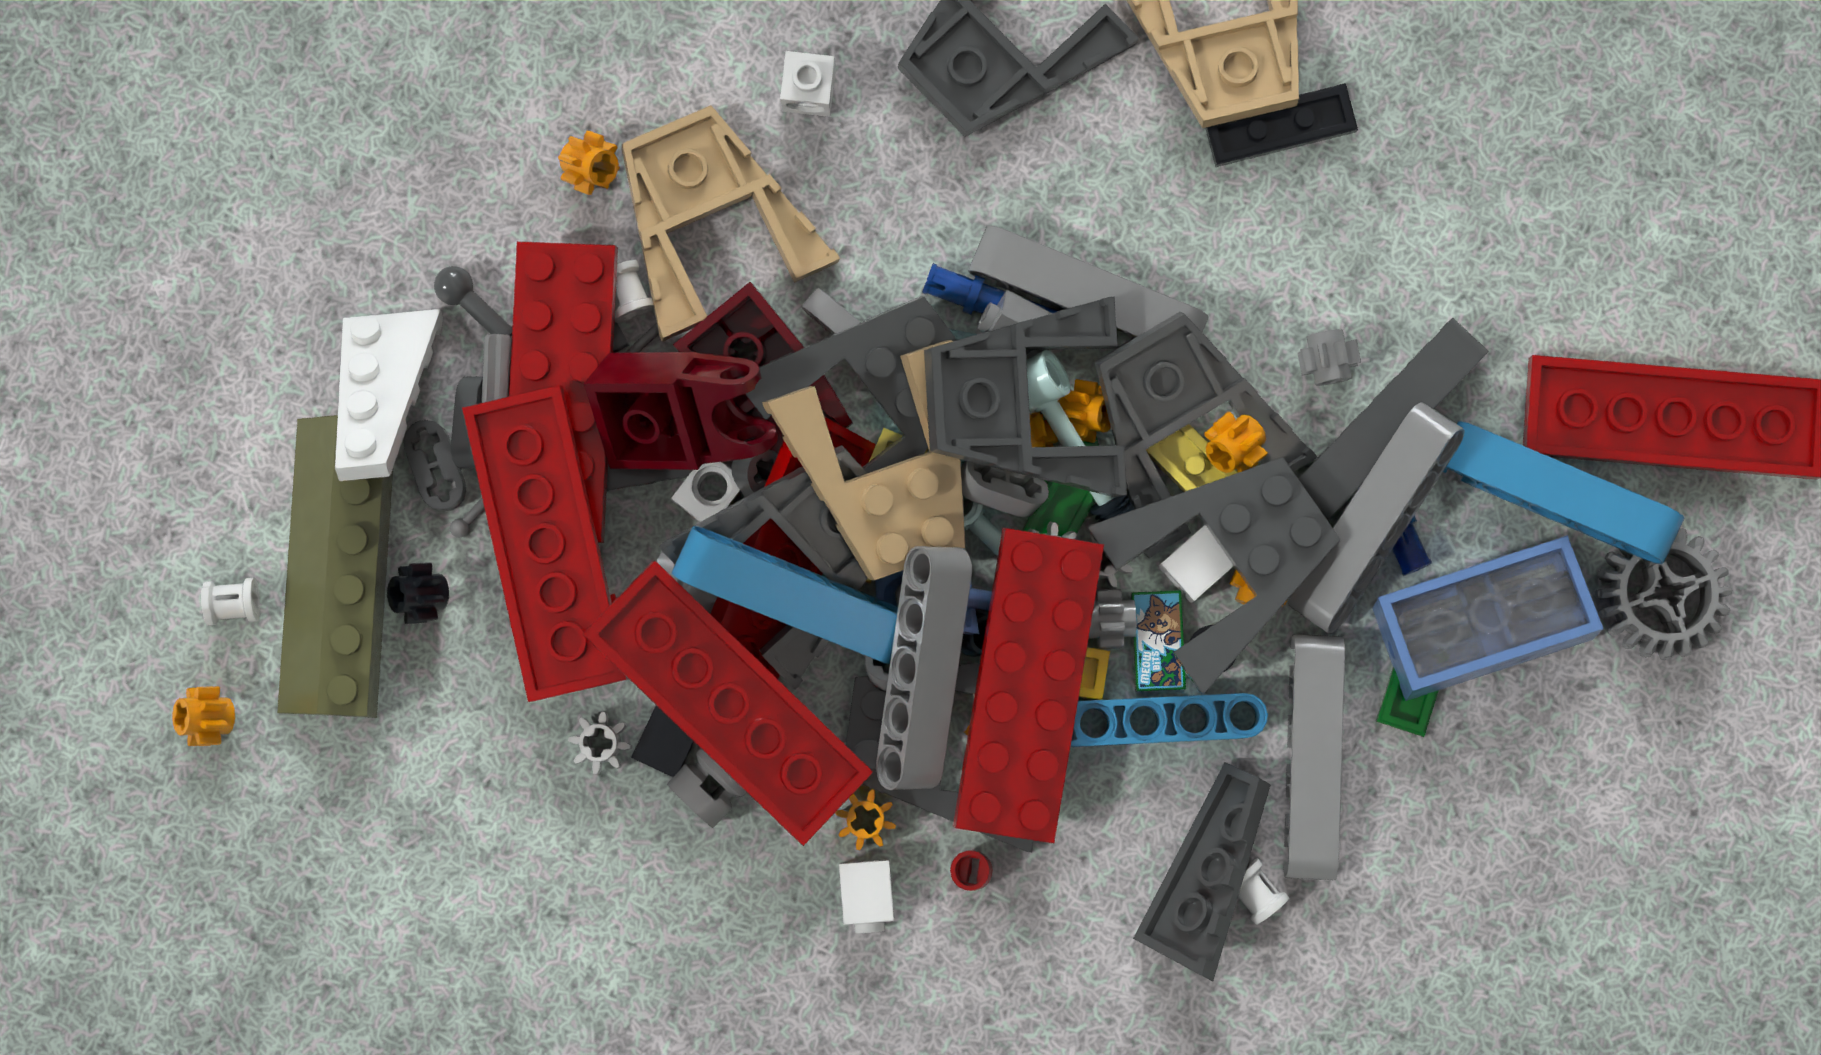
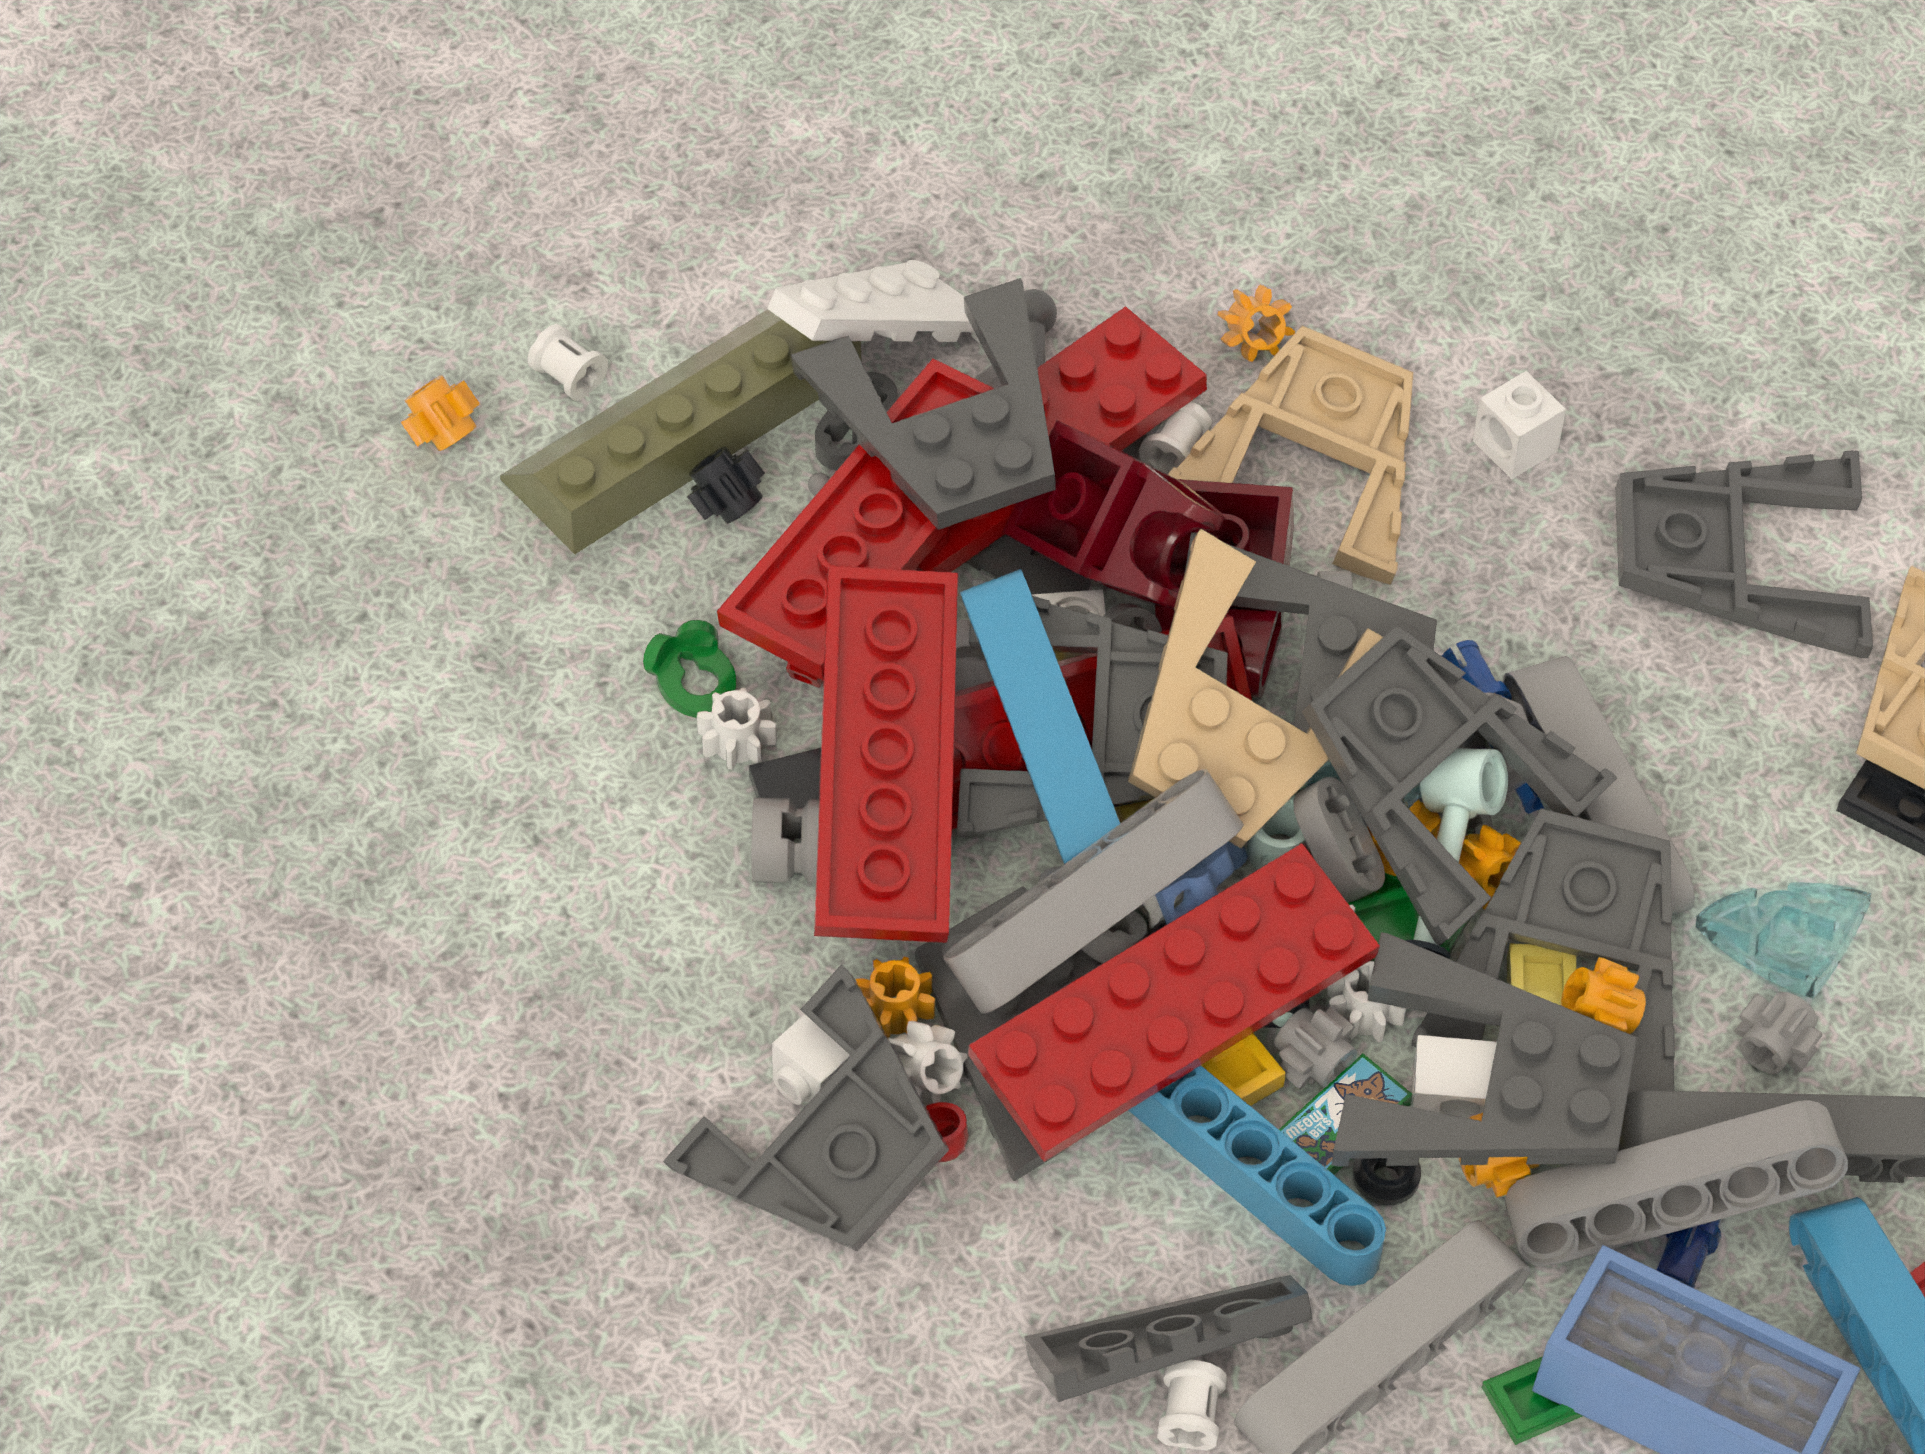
camera: 45 degrees right, 30 degrees down
(517, 706) = (693, 641): none -> green piece
(560, 454) = (963, 454): none -> dark grey wing
(924, 844) = (930, 1059): none -> white gear
(943, 938) = (847, 1151): none -> dark grey wing
(1251, 293) = (1787, 923): none -> clear light blue brick

